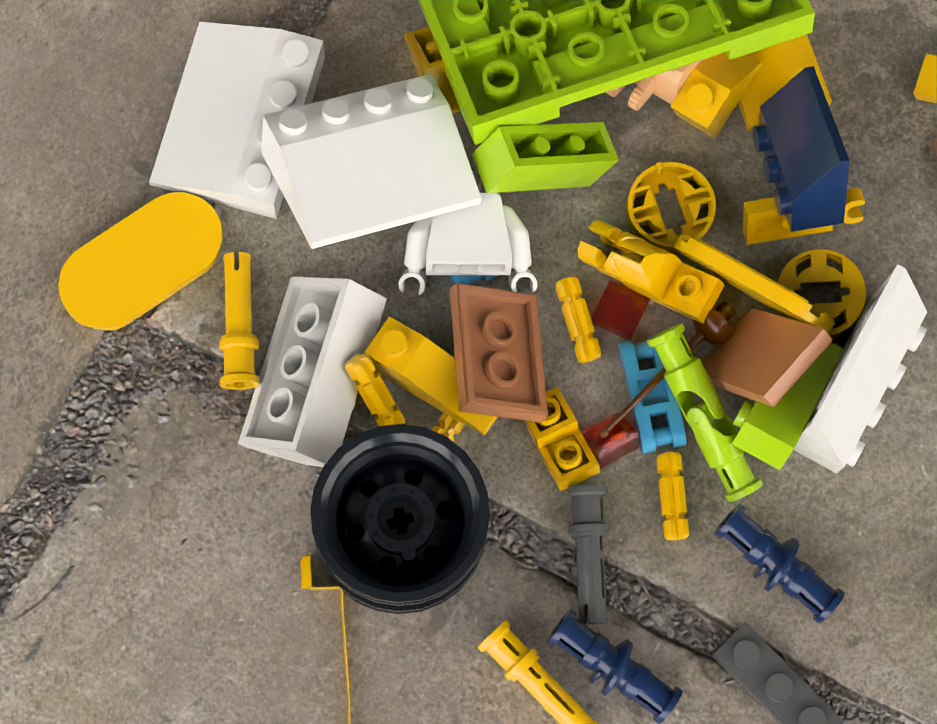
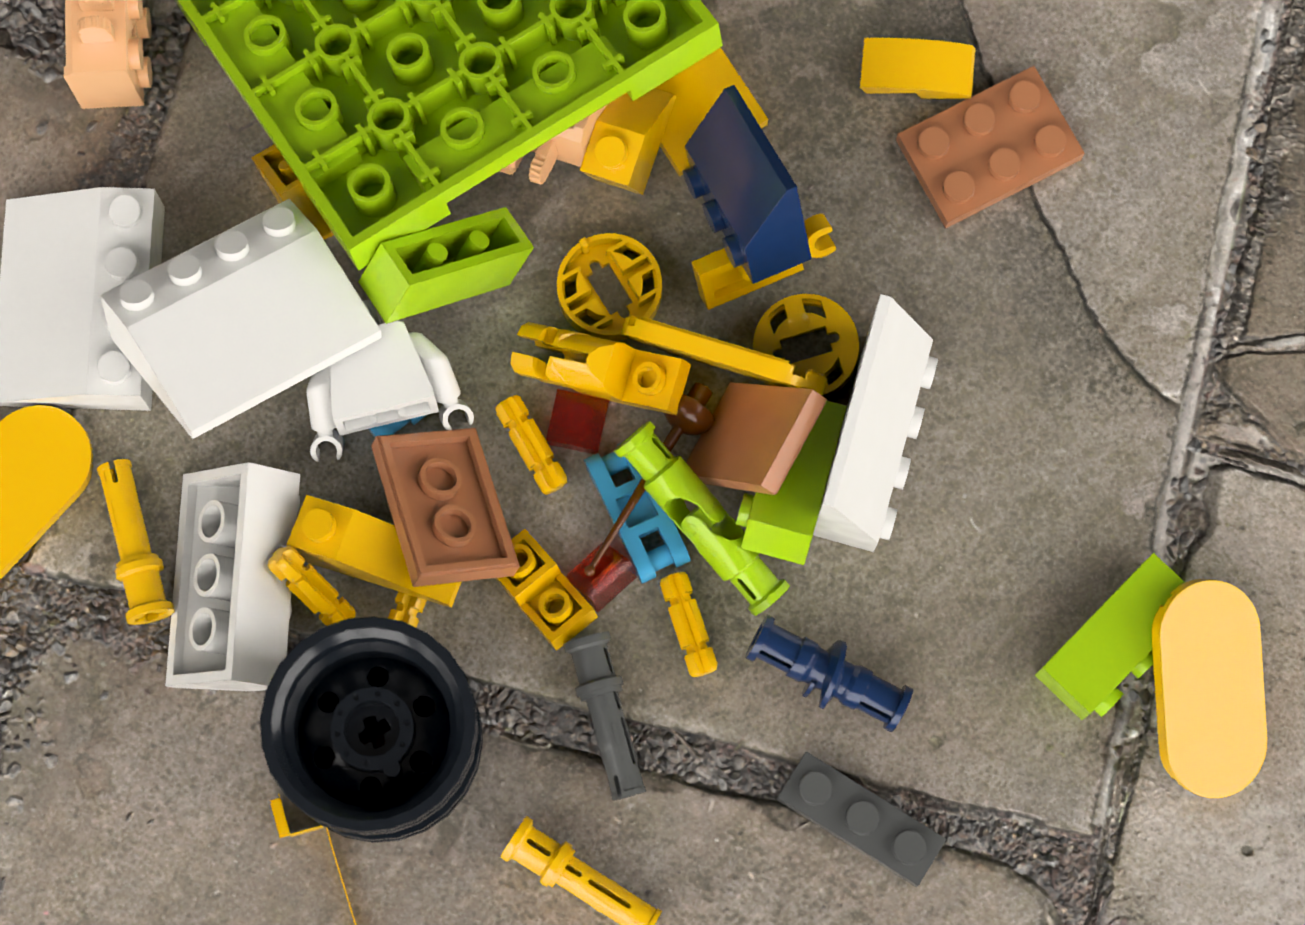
camera: 10 degrees left, 0 degrees up
(615, 666) = (666, 840): dark blue piece -> none

